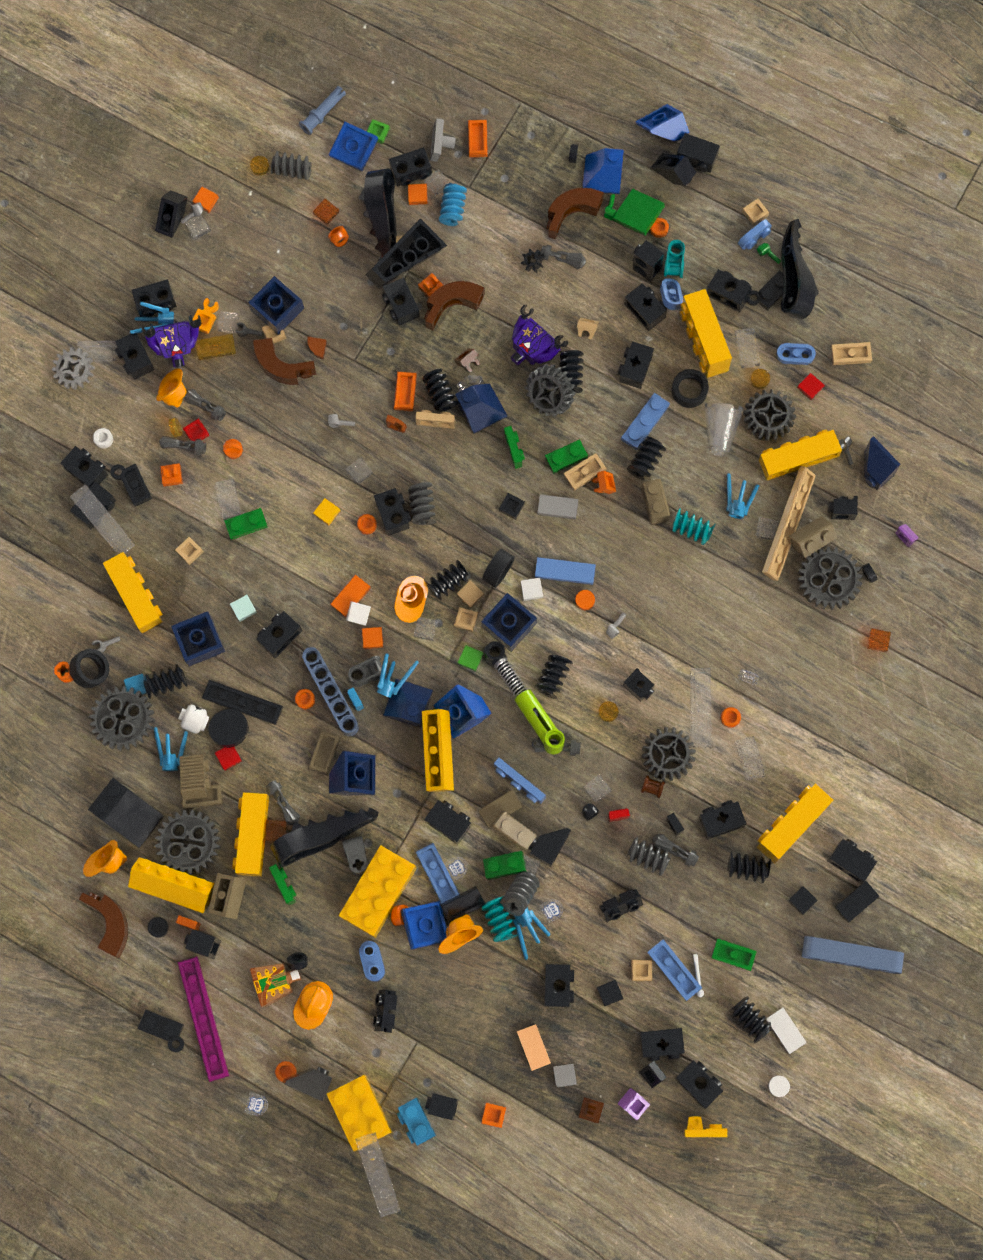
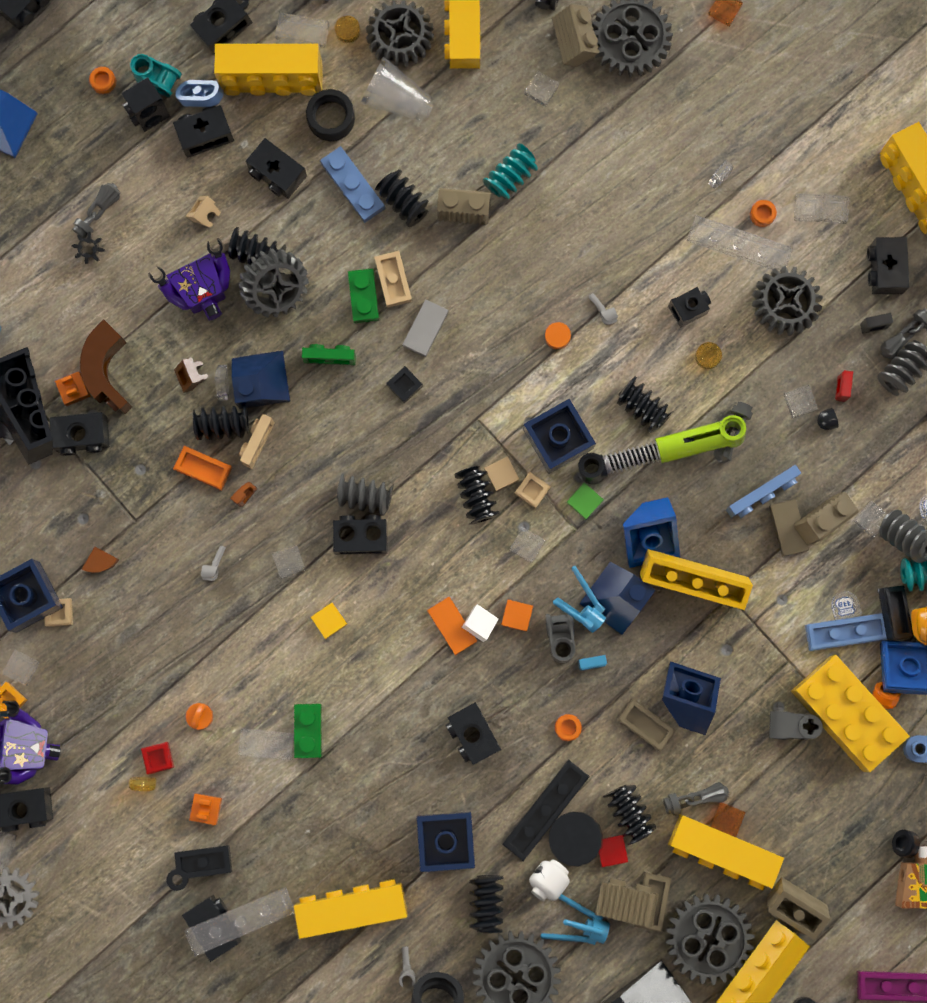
camera: 75 degrees left, 5 degrees up
(77, 459) = (139, 930): black brick -> none
(103, 438) = (121, 886): white tile -> none
(137, 683) = (474, 942): dark azure tile -> none
(168, 442) = (159, 800): dark grey piece -> none
(172, 388) = (87, 772): light orange piece -> none
(188, 923) = (815, 970): orange tile -> none
(189, 550) = (321, 817): tan tile -> none
(194, 398) = (109, 747): dark grey piece -> none
(202, 944) = (852, 960): black brick -> none
(215, 347) = (50, 695): clear yellow plate -> none
(243, 608) = (420, 770): light aqua tile -> none
(245, 331) = (43, 645): dark grey hand -> none
(258, 759) = (630, 813): none -> black piece
(279, 370) = (112, 623): reddish brown arch -> none
(287, 891) = (812, 829): green plate -> none
(316, 837) = (754, 768): black animal -> none
(329, 682) = (584, 686): sand blue beam -> none
(367, 524) = (363, 574): orange tile -> none
(410, 598) = (486, 549): light orange piece -> none
(448, 822) = (788, 596): black brick -> none
(498, 568) = (484, 426): black tyre -> none
(504, 865) = (863, 545): green plate -> none
(531, 589) = (521, 396): white tile -> none
(548, 846) = (857, 480): black slope -> none
(565, 571) = (512, 347): medium blue tile -> none
(572, 201) = (27, 165): reddish brown arch -> none
(606, 482) = (416, 257): orange tile -> none
(609, 211) = (59, 132): green hand -> none
(638, 212) = (73, 96): green tile -> none
(652, 786) = (821, 333): reddish brown bush -> none
(674, 168) = (32, 32): black slope -> none
(737, 508) = (505, 112): dark azure plant -> none
(788, 523) = (546, 58): tan tile -> none

